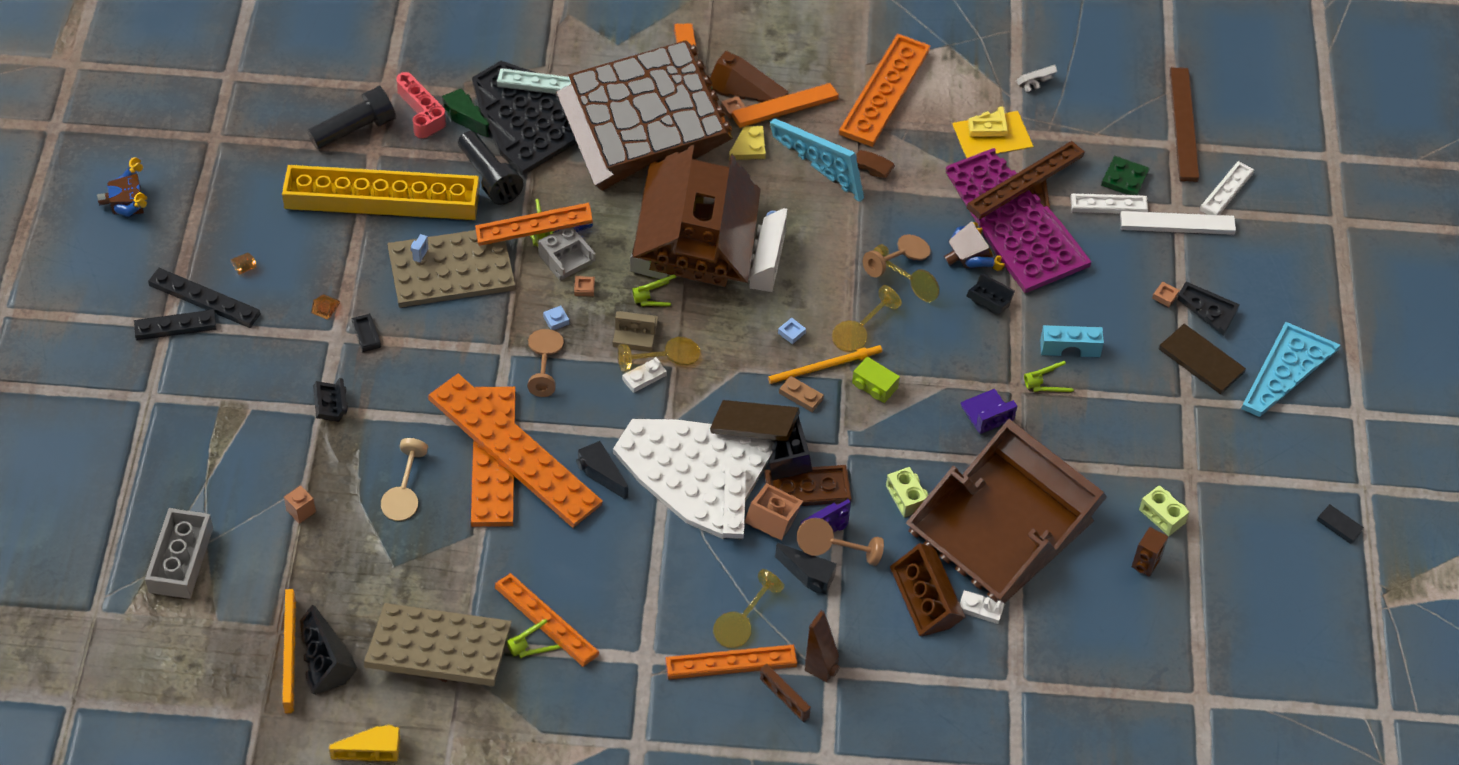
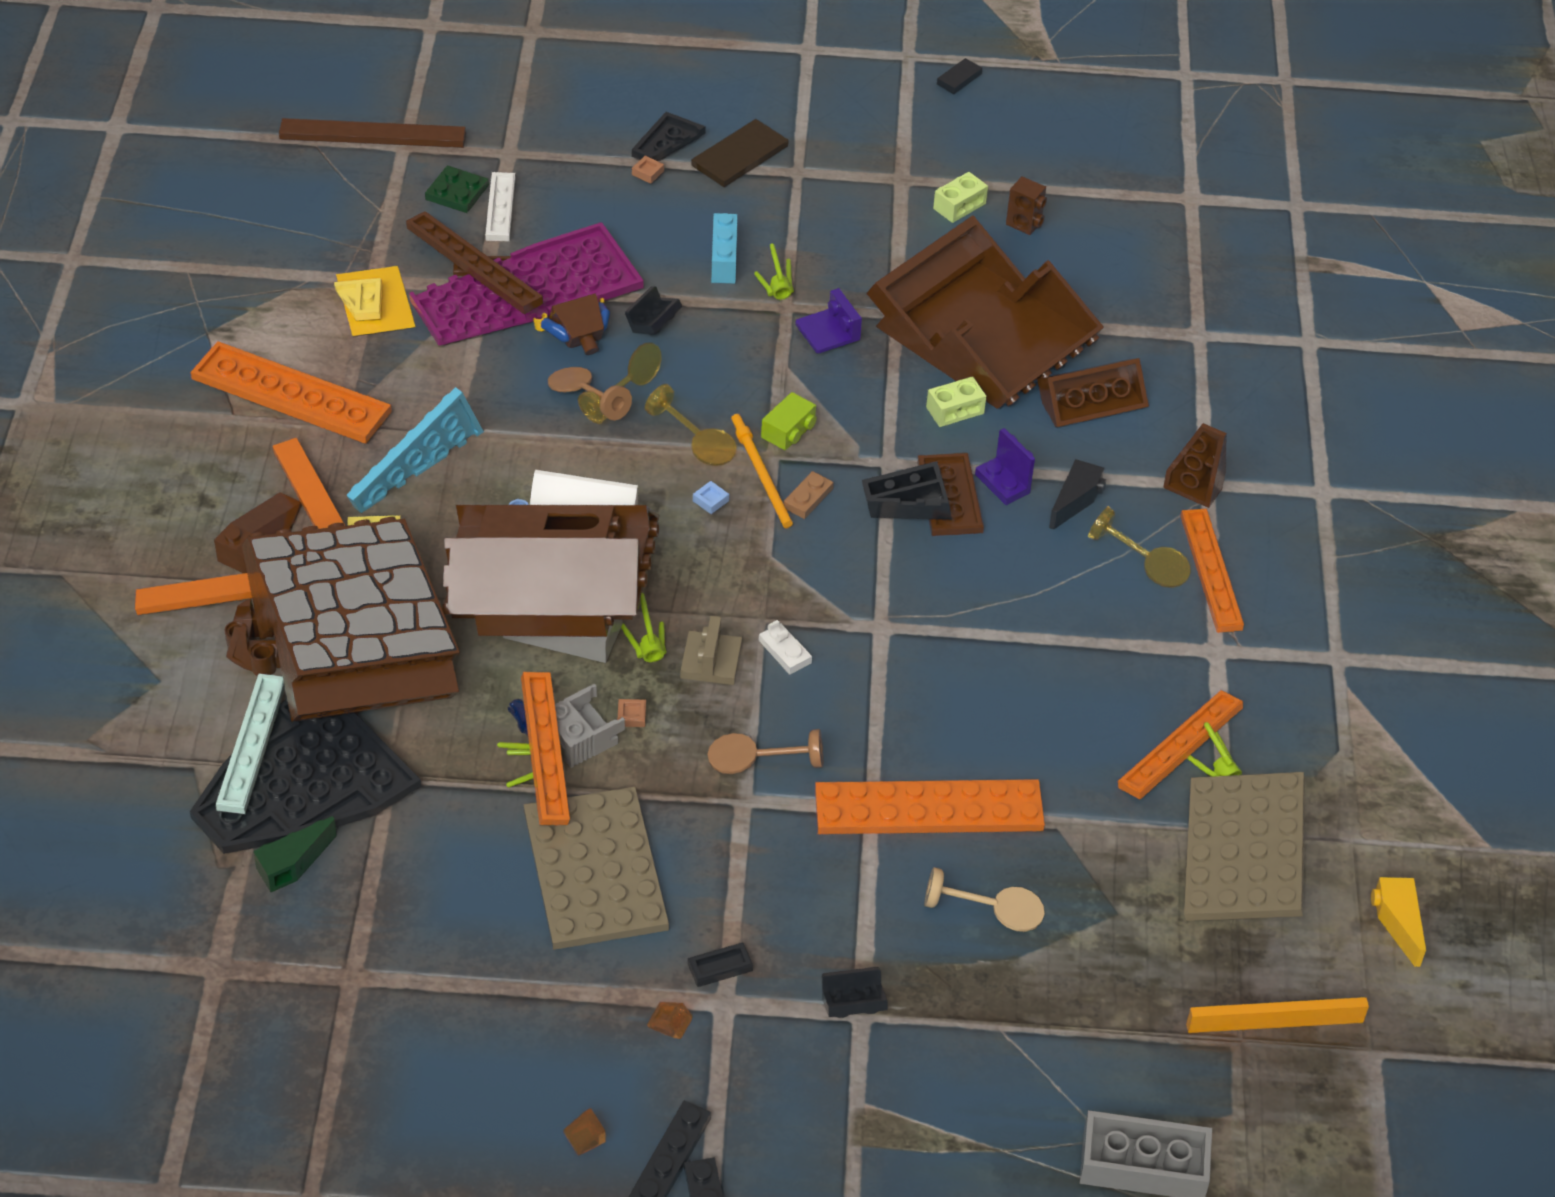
camera: 90 degrees left, 5 degrees down
(299, 504) = (1041, 1017): nougat brick -> none
(327, 657) = (1278, 973): black wedge -> none
(374, 108) = (286, 961): black piece -> none
(381, 192) = (459, 953): yellow brick -> none
(419, 248) = (580, 888): light blue plate -> none
(429, 111) = (294, 895): coral beam -> none
(499, 179) = (448, 798): black piece -> none
(515, 450) = (926, 776): orange plate -> none
(556, 318) = (689, 742): light blue plate -> none
(601, 468) = (943, 688): black slope -> none
(678, 350) = (746, 610): clear yellow piece -> none
(686, 466) = (931, 599): white piece -> none
(734, 501) = (991, 551): white plate -> none
(755, 420) = (874, 522): dark brown tile -> none
(773, 511) = (1001, 517): nougat slope -> none
(785, 693) = (1251, 517): reddish brown tile -> none
(816, 537) = (1047, 431): medium nougat piece -> none
(874, 163) = (420, 407): reddish brown slope -> none
(981, 607) = (1104, 349): white plate -> none
(1031, 78) = (284, 248): white plate -> none
(1177, 222) = (533, 153): white tile -> none
(1227, 189) = (482, 109): white tile -> none
(1288, 363) = (747, 85): medium azure wing -> none

